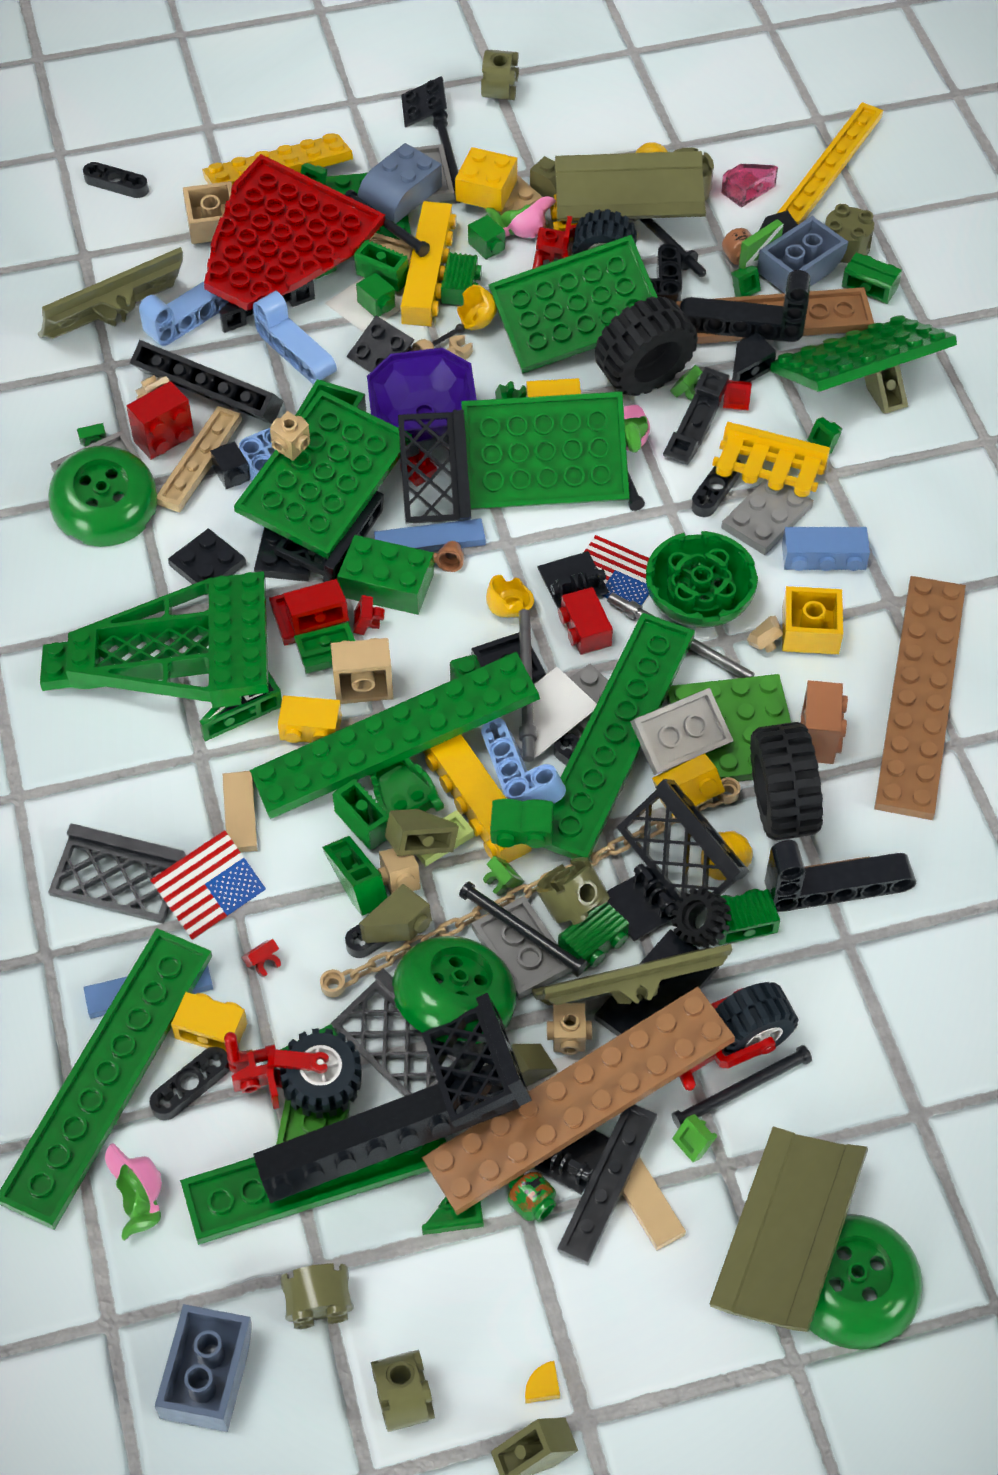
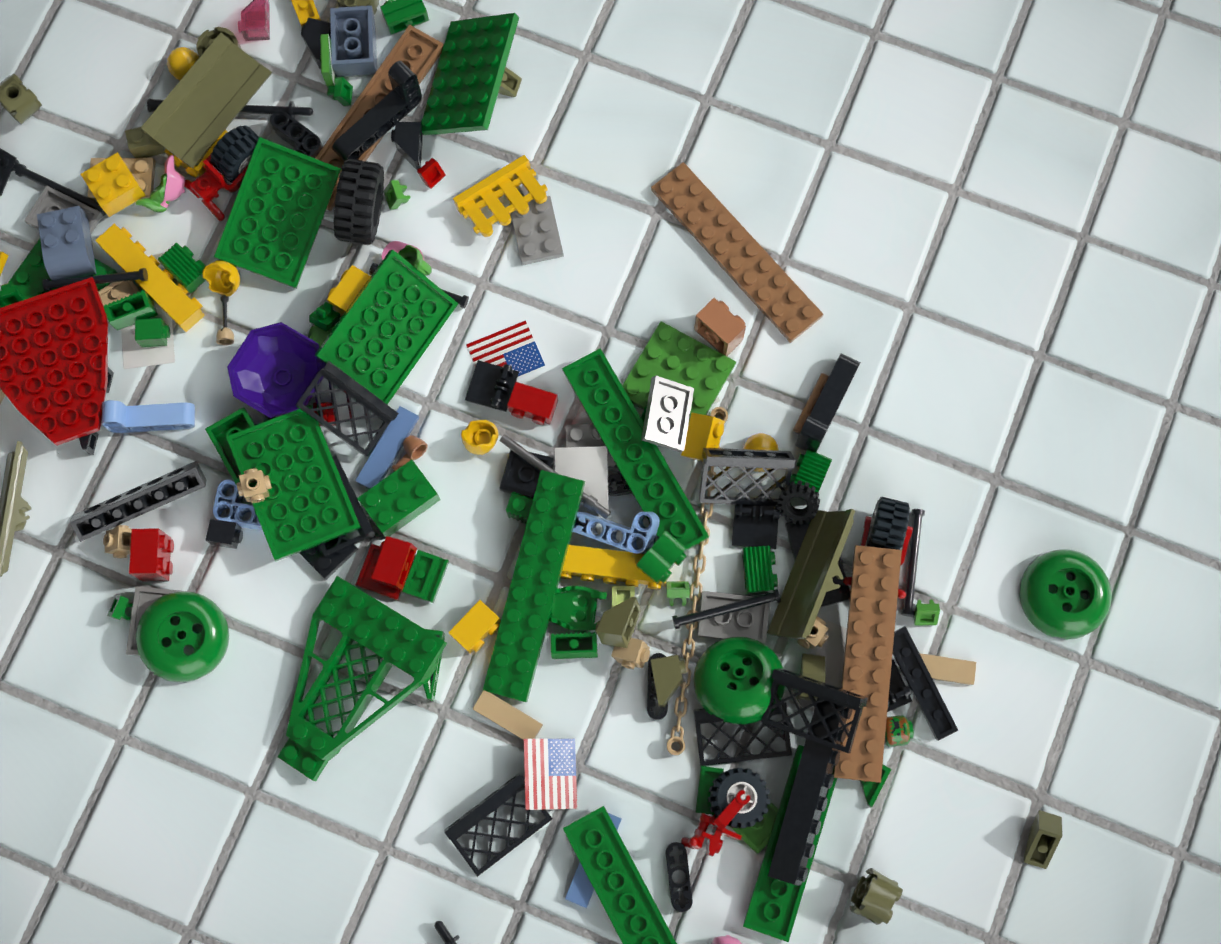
camera: 50 degrees left, 20 degrees up
(180, 316) = (57, 475): light blue beam -> none
(198, 459) = (199, 550): tan plate -> none
(206, 558) = (290, 603): black plate -> none
(207, 1021) = (649, 838): yellow brick -> none
(260, 954) = (624, 775): red tile -> none
(356, 874) = (610, 678): green slope -> none
(362, 670) = (467, 569): tan brick -> none
(366, 615) = (420, 534): red tile -> none
(378, 343) = (201, 363): black hinge -> none
(402, 1390) = (980, 884): olive brick -> none
(455, 344) = (240, 319): tan bar -> none
(486, 237) = (160, 222): green brick -> none
(542, 1384) = (1006, 806): yellow tile -> none
(572, 891) = (726, 562): olive brick -> none
(634, 610) = (546, 368): flat silver bar -> none
(684, 574) = (555, 289): green brick -> none
(698, 416) = (429, 212): black slope -> none
(715, 495) = (497, 248): black beam -> none
(732, 243) = (308, 70): nougat head -> none
(766, 634) = (627, 304): tan piece -> none
(786, 781) = (754, 384): black tyre -> none
(788, 1230) = (1023, 607): olive hinge -> none
(812, 620) = (642, 271): yellow brick -> none
(825, 433) = (507, 147): green tile -> none
(825, 548) = (593, 219): medium blue brick -> none

